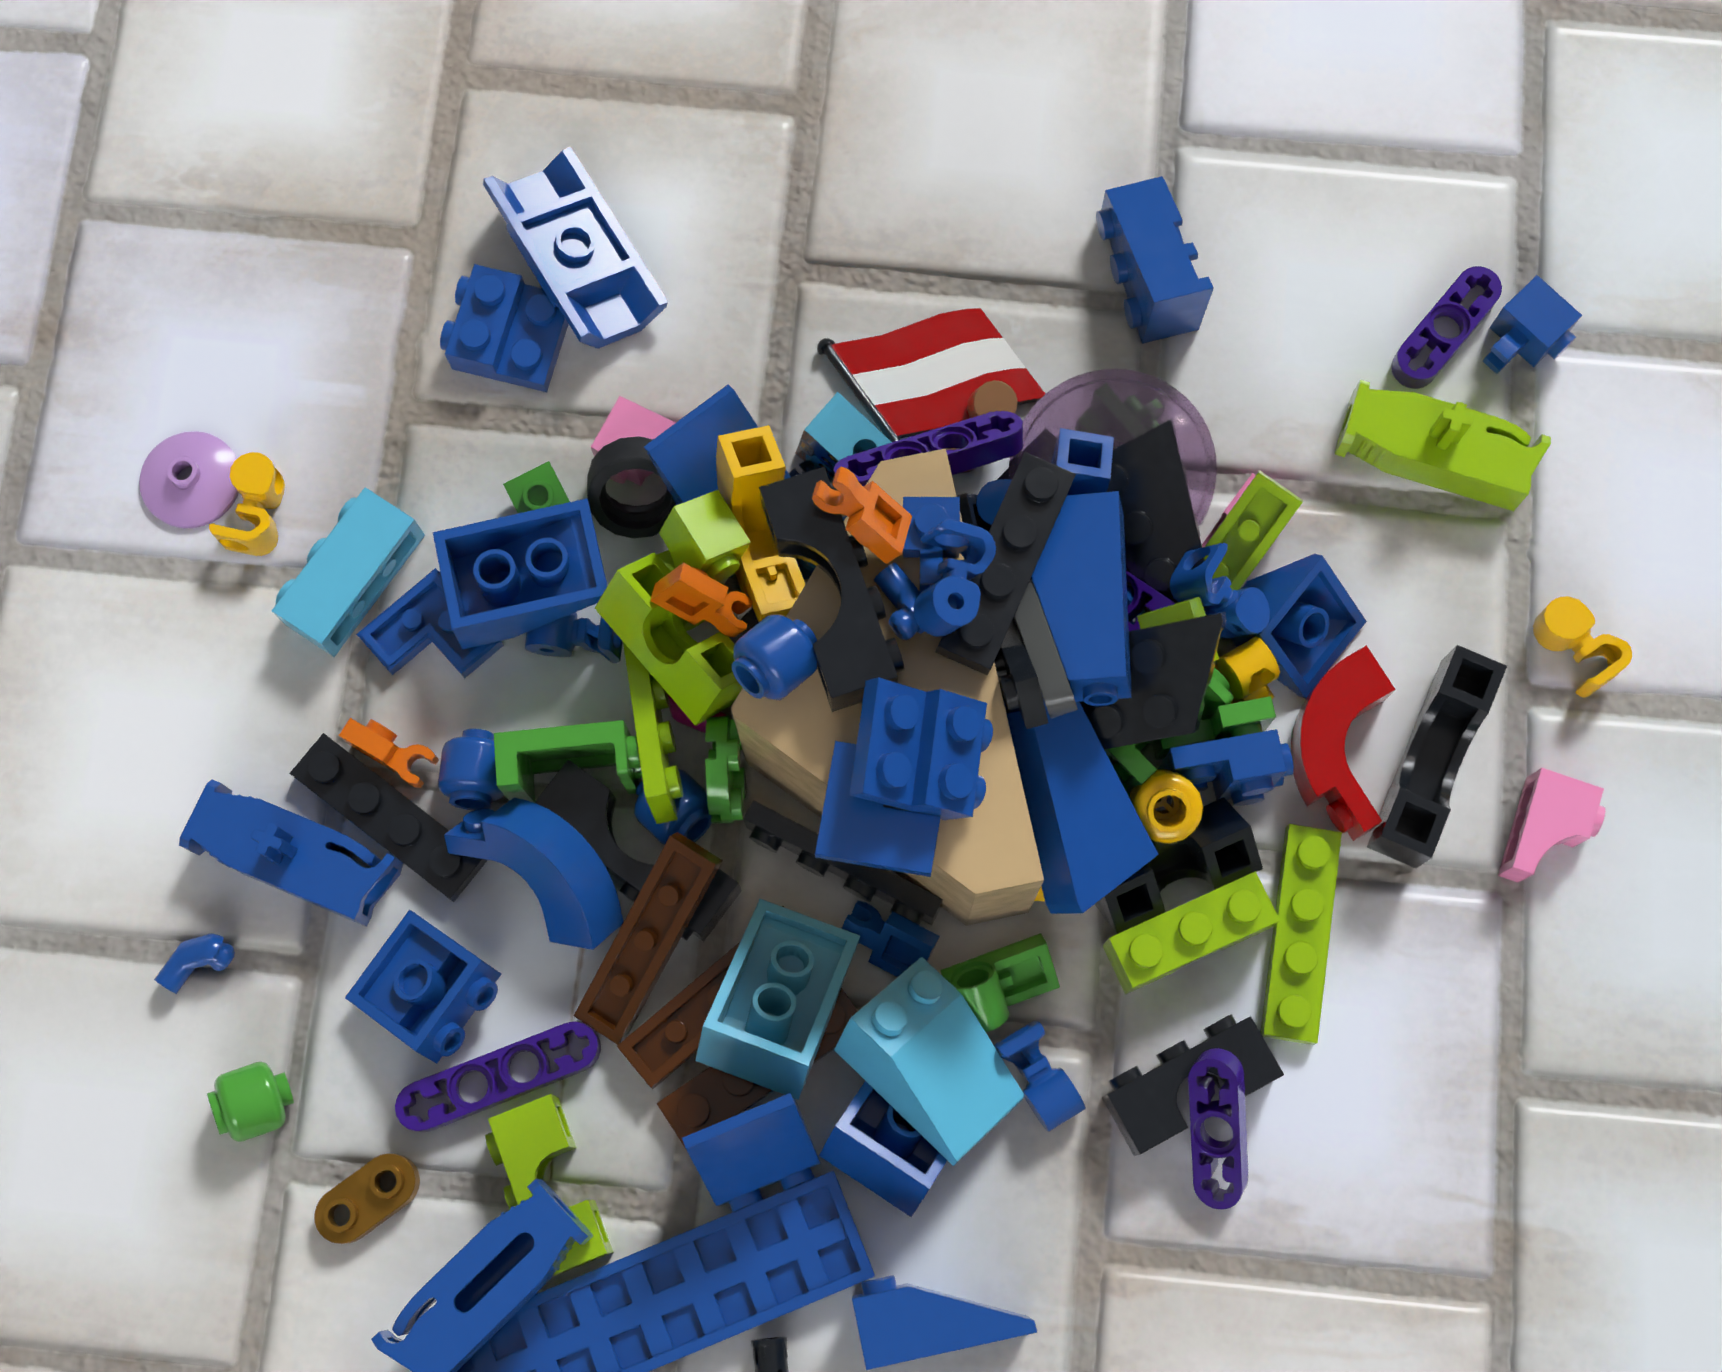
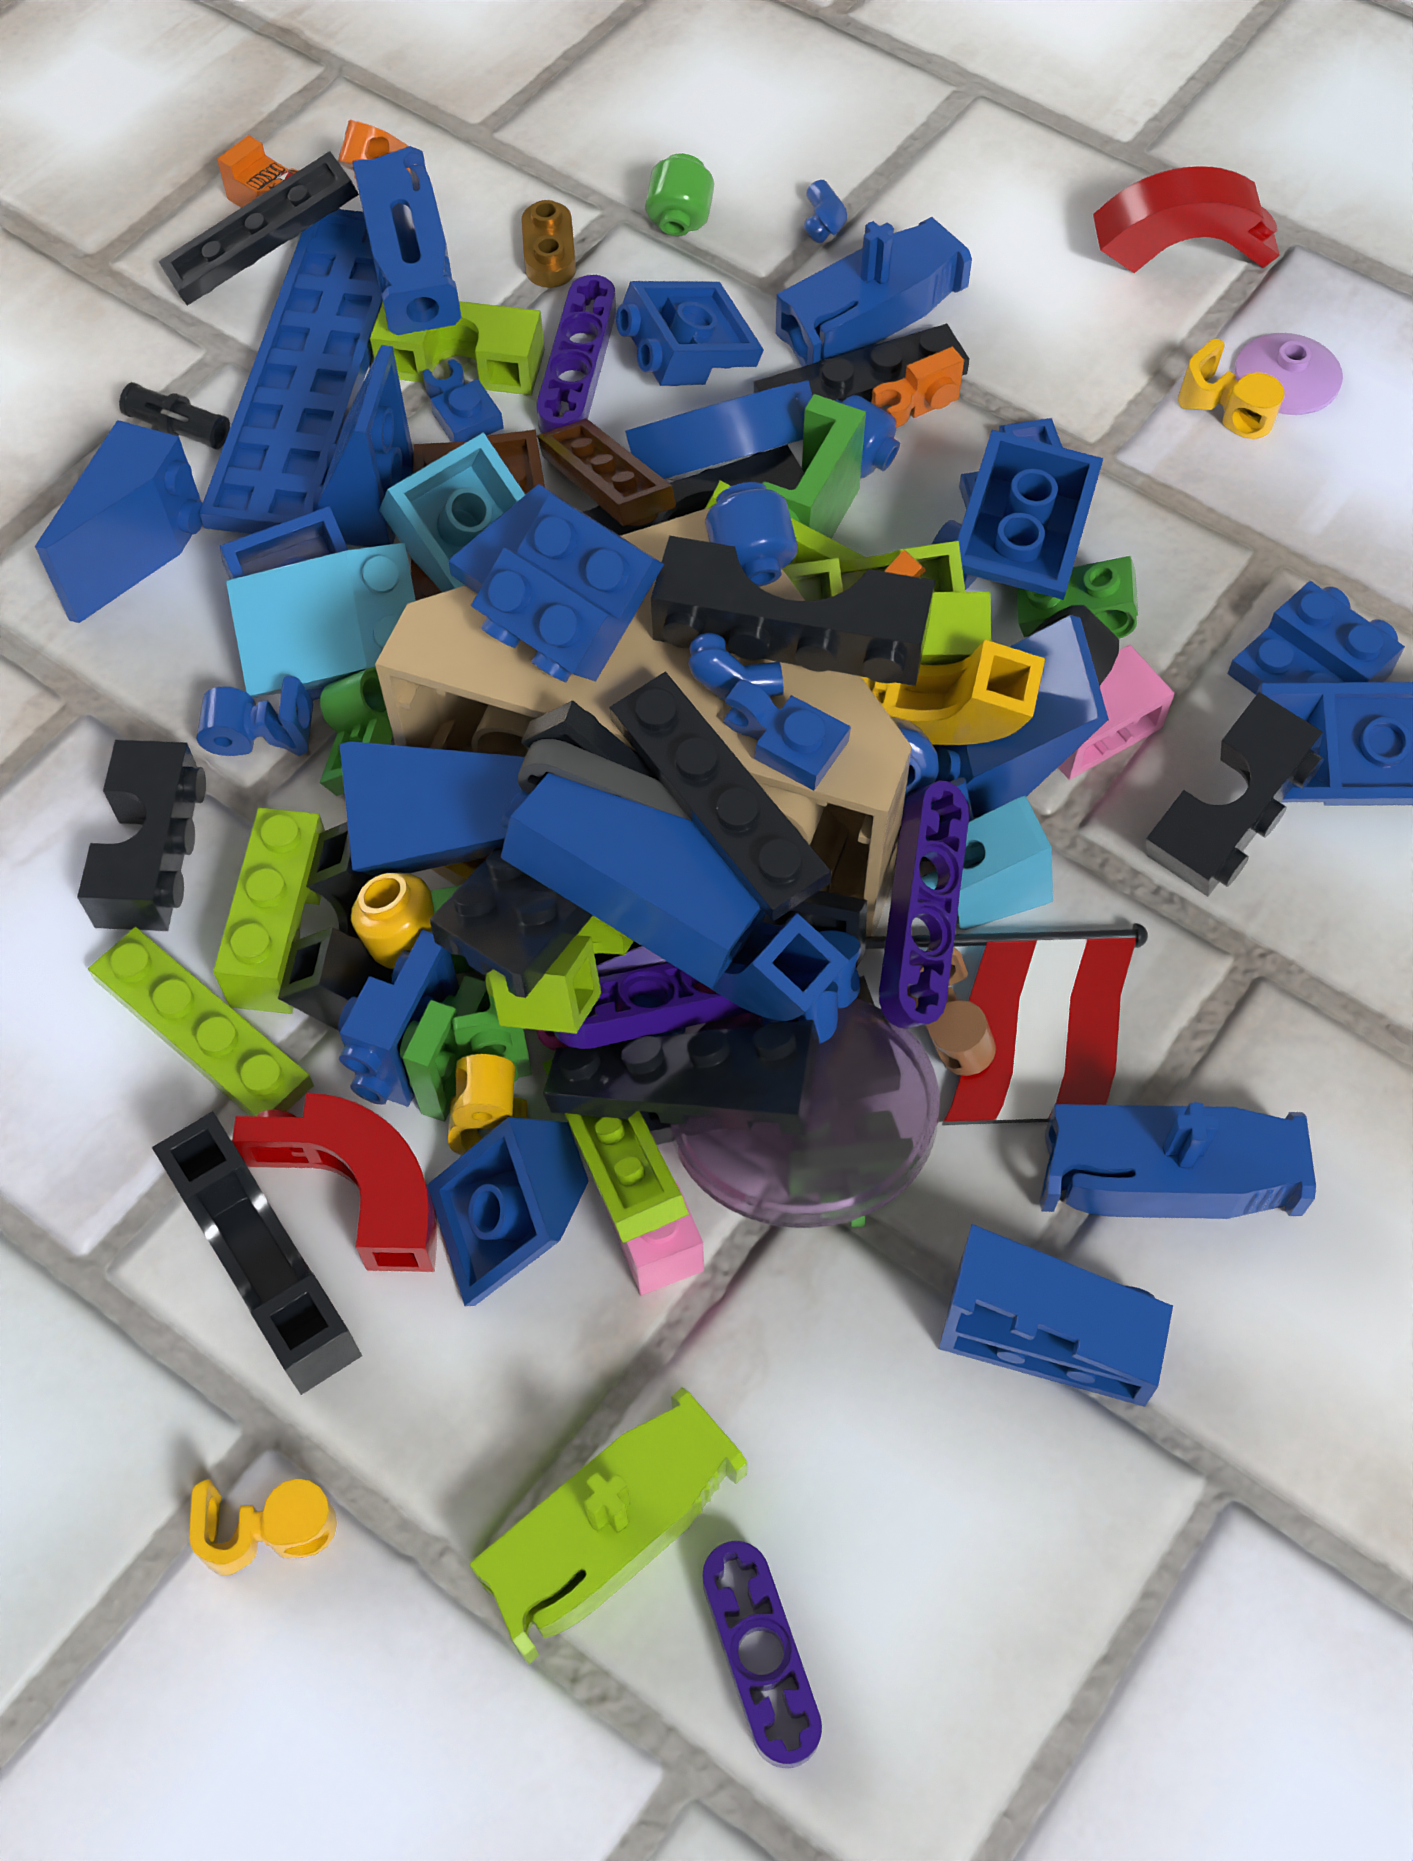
camera: 120 degrees right, 15 degrees down
(64, 626) = (1183, 207): none -> red arch
(348, 571) = (1112, 419): medium azure brick -> none
(615, 1139) = (461, 407): none -> blue plate
(731, 321) = (1207, 840): none -> black arch
(873, 514) = (834, 657): orange plate -> none
(954, 598) = (701, 682): blue leg -> none
(994, 242) = (1177, 1161): none -> blue piece
(1231, 1109) = (83, 818): dark purple beam -> none
(1245, 608) = (555, 1096): blue leg -> none
(1532, 325) = (693, 1763): blue brick -> none
(1550, 813) = (103, 1347): bright pink arch -> none

